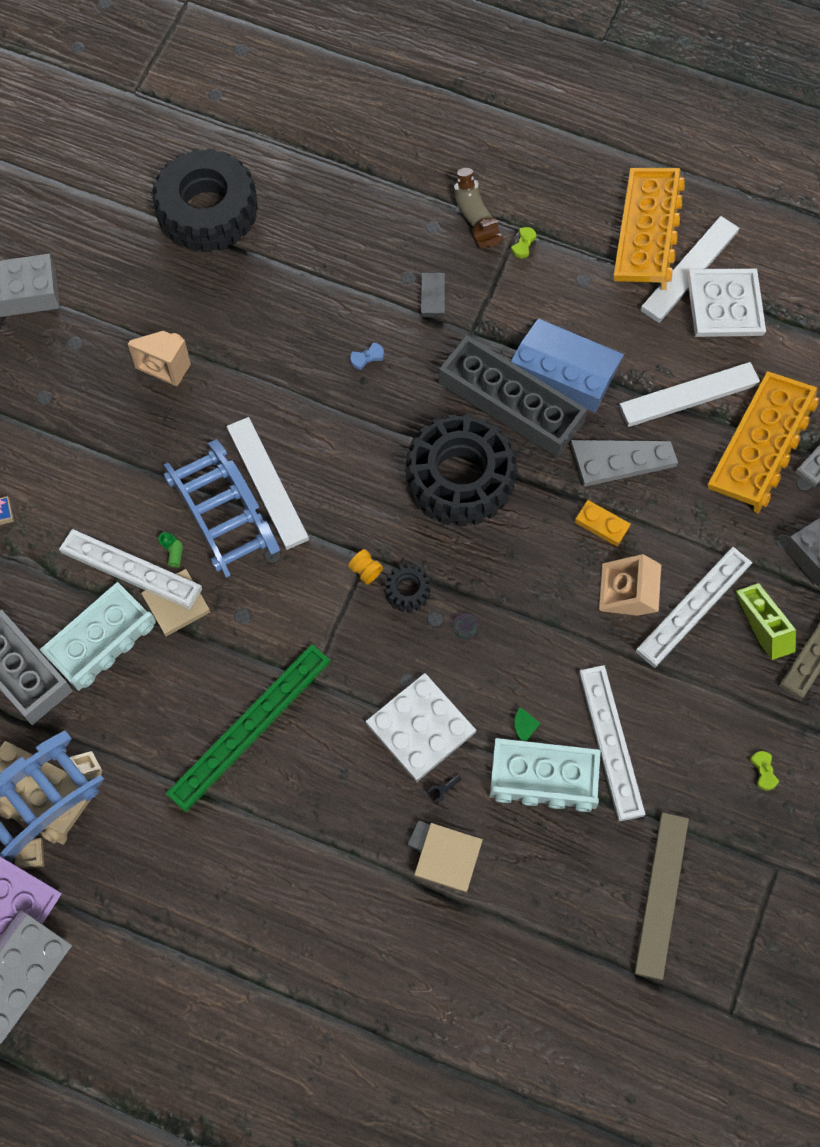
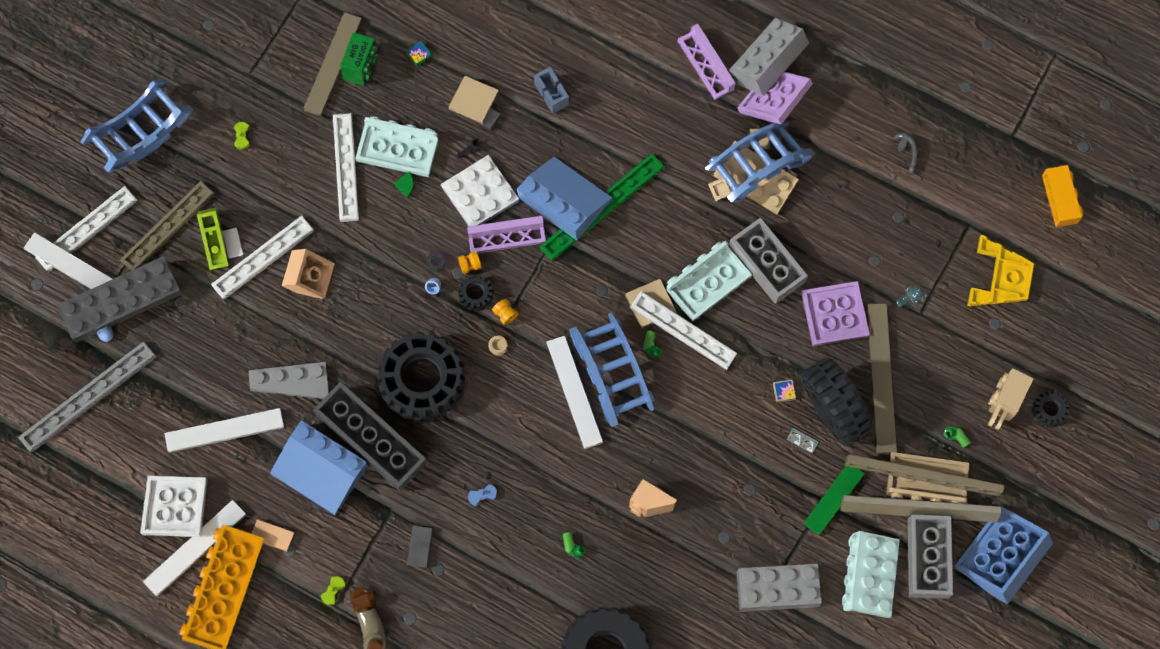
camera: 175 degrees left, 5 degrees up
(99, 969) = (713, 60): none -> lavender fence
(253, 310) = (572, 548): none -> arm
(302, 727) = (563, 197): none -> medium blue slope
(330, 875) = (547, 84): none -> sand blue piece
(370, 529) = (498, 345): none -> tan tile
(377, 676) = (503, 228): none -> lavender fence
(421, 625) = (469, 262): none -> light orange wheel
(464, 591) = (433, 288): none -> light blue hinge
(539, 927) = (418, 53): none -> tile
(602, 523) = (318, 329): light orange plate -> none
(605, 289) = (273, 535): none -> light nougat tile
(625, 894) = (359, 59): none -> green brick
(738, 623) = (232, 243): none -> white sticker
(764, 440) = (175, 381): light orange bracket -> none

